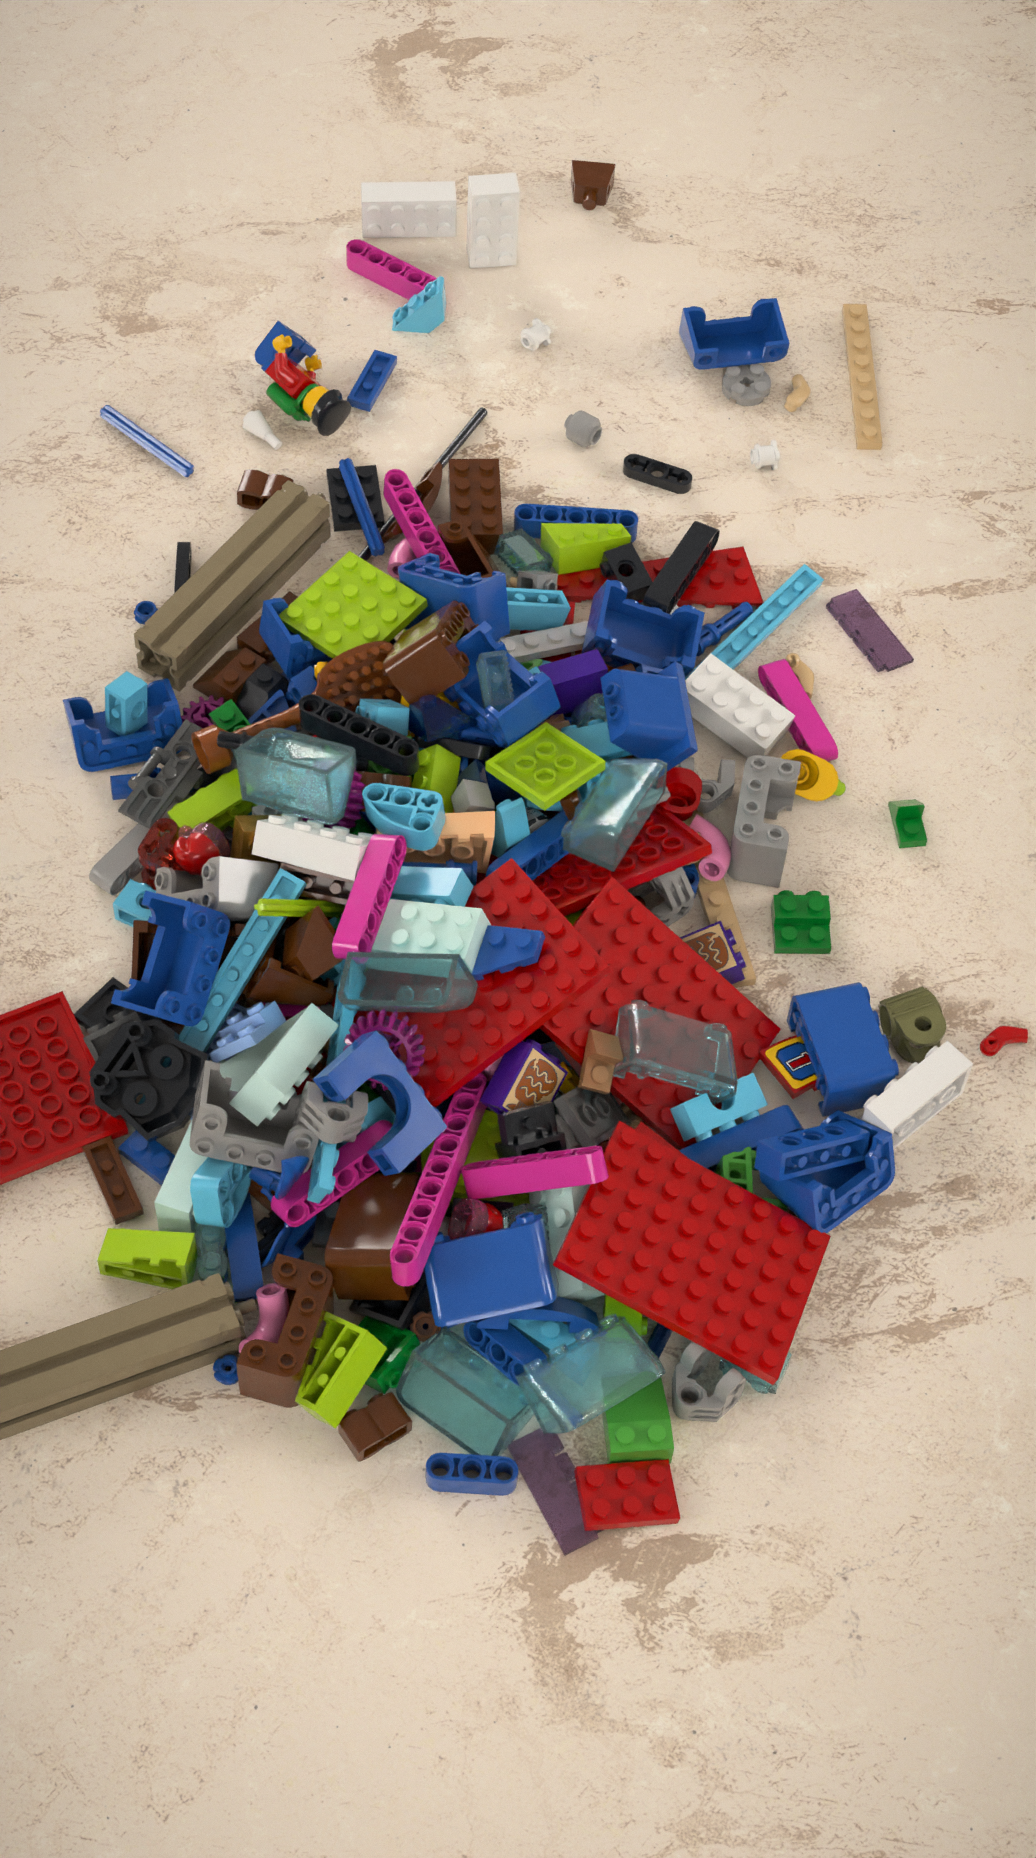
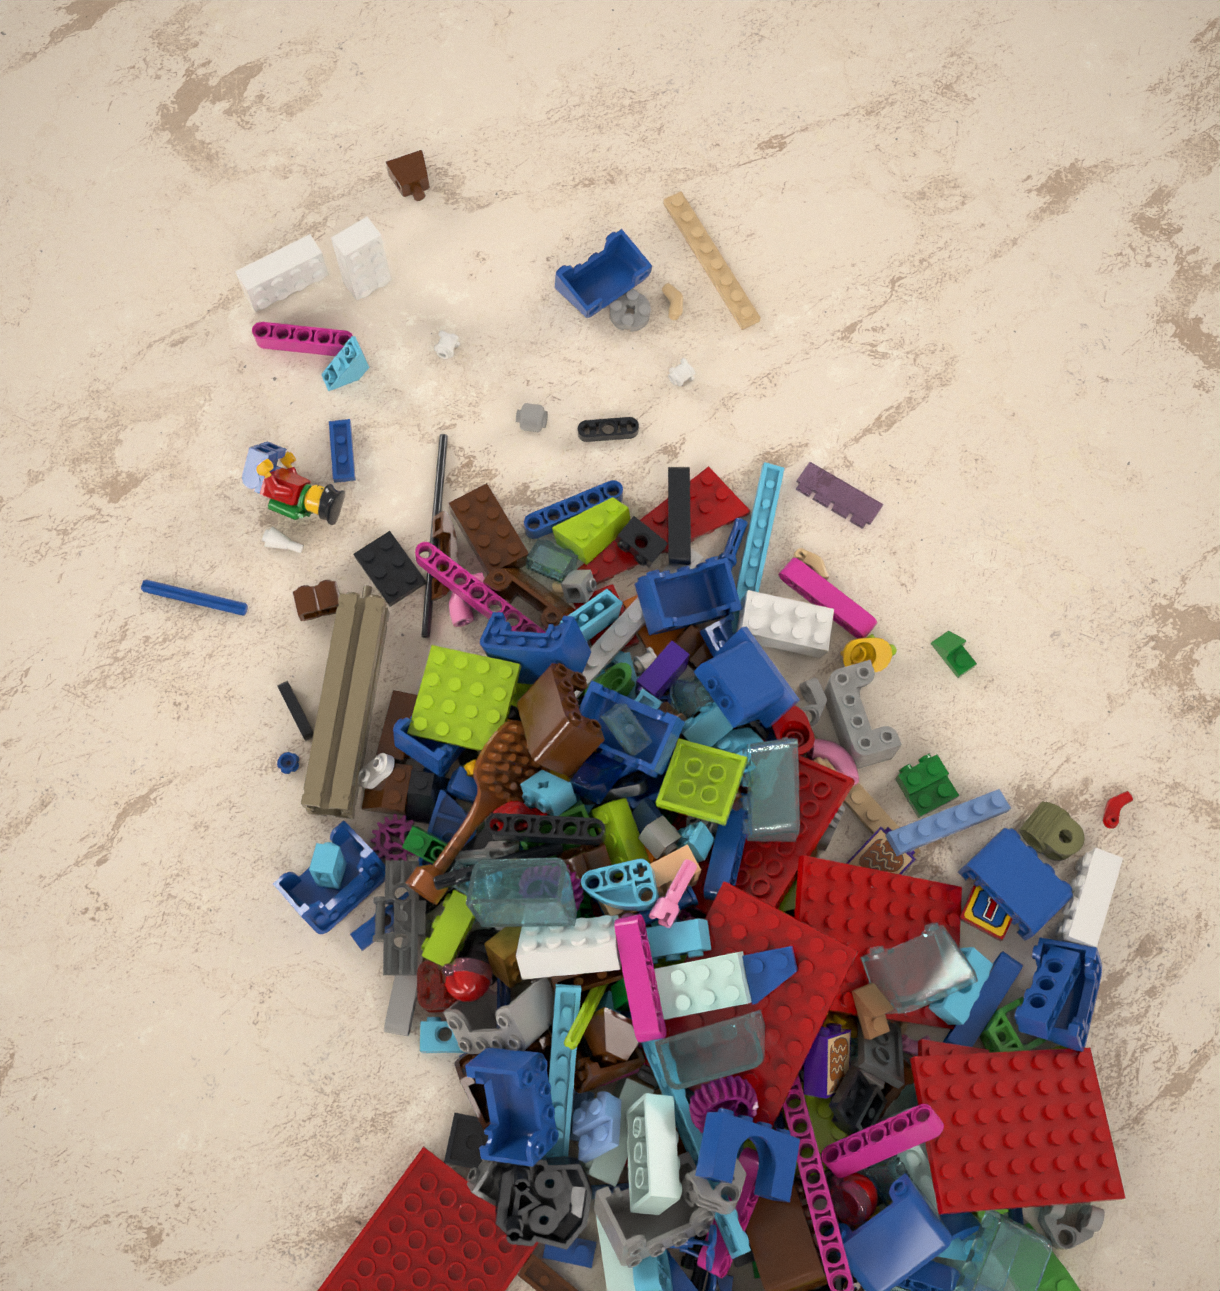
camera: 25 degrees left, 15 degrees up
(232, 648) = (376, 771): none -> white plate
(361, 507) = (404, 580): blue axle -> none
(439, 847) = (666, 907): none -> bright pink piece
(800, 956) = (947, 822): none -> medium blue plate

